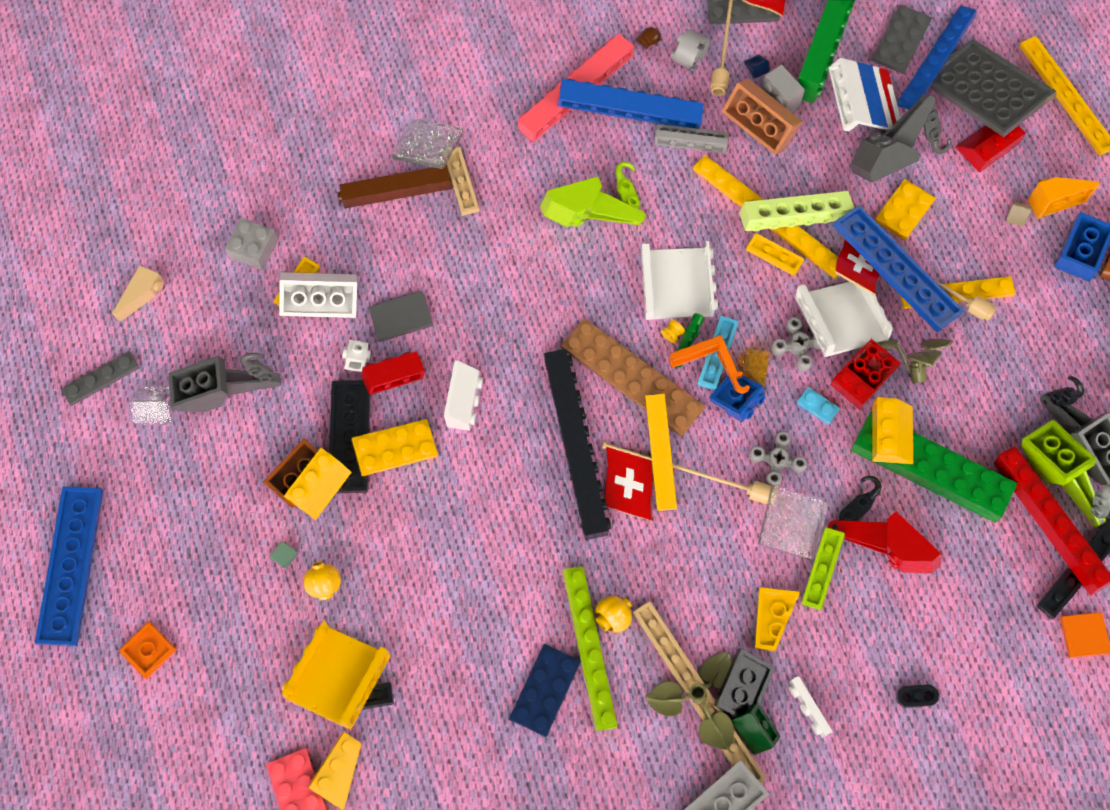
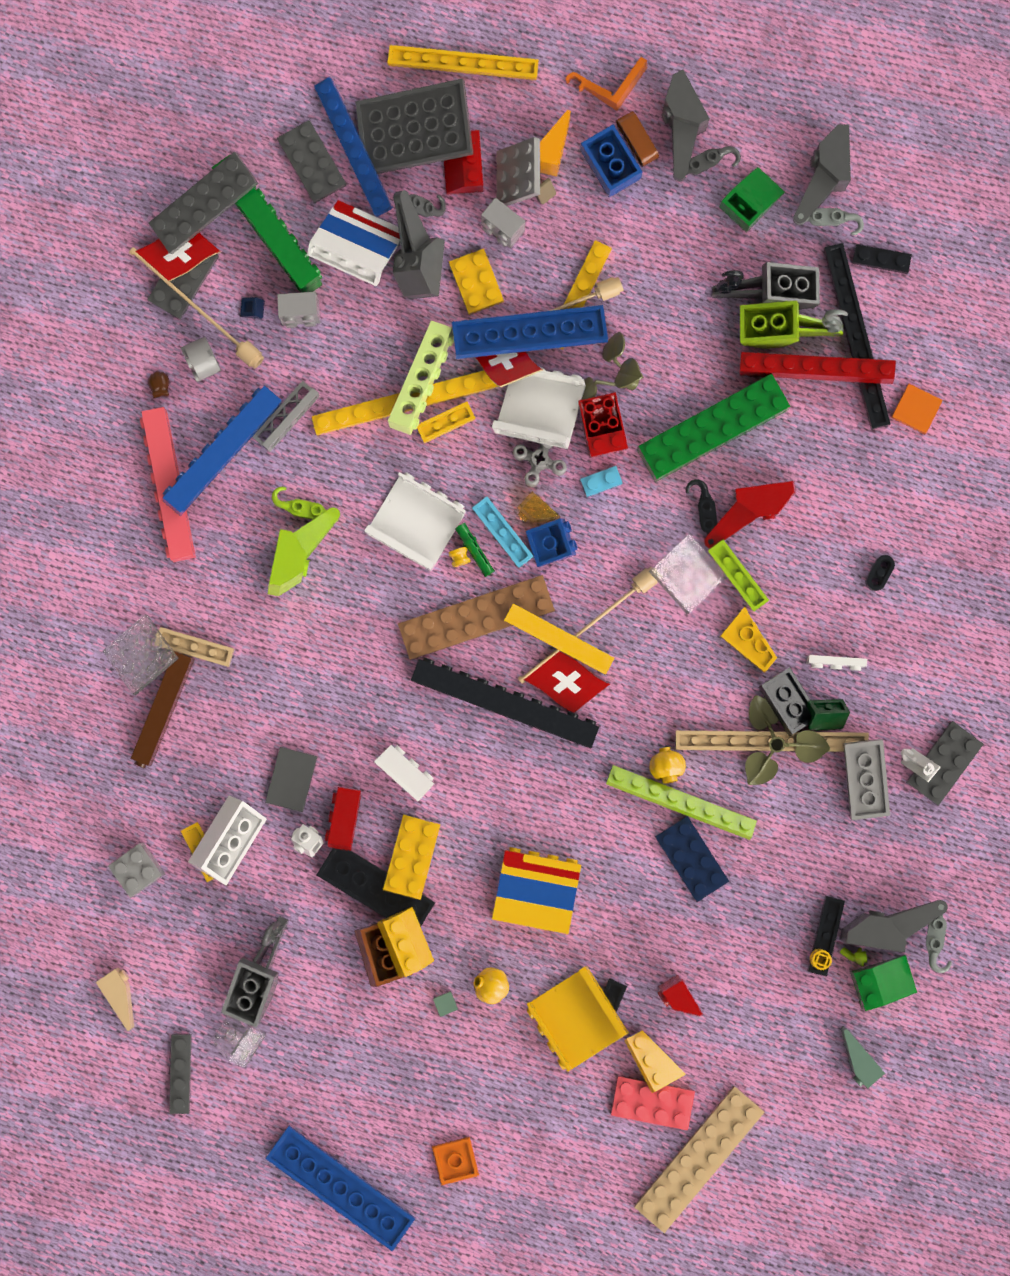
camera: 60 degrees left, 15 degrees up
(410, 752) = (677, 995): none -> red slope
(430, 568) = (537, 890): none -> panel
(705, 348) = (513, 532): orange hinge -> none
(761, 116) = (311, 344): nougat brick -> none
(785, 460) = (619, 553): light grey gear -> none
(892, 431) = (669, 443): yellow slope -> none
(967, 195) = (502, 223): none -> light grey brick
(1017, 180) = (518, 171): none -> light grey plate

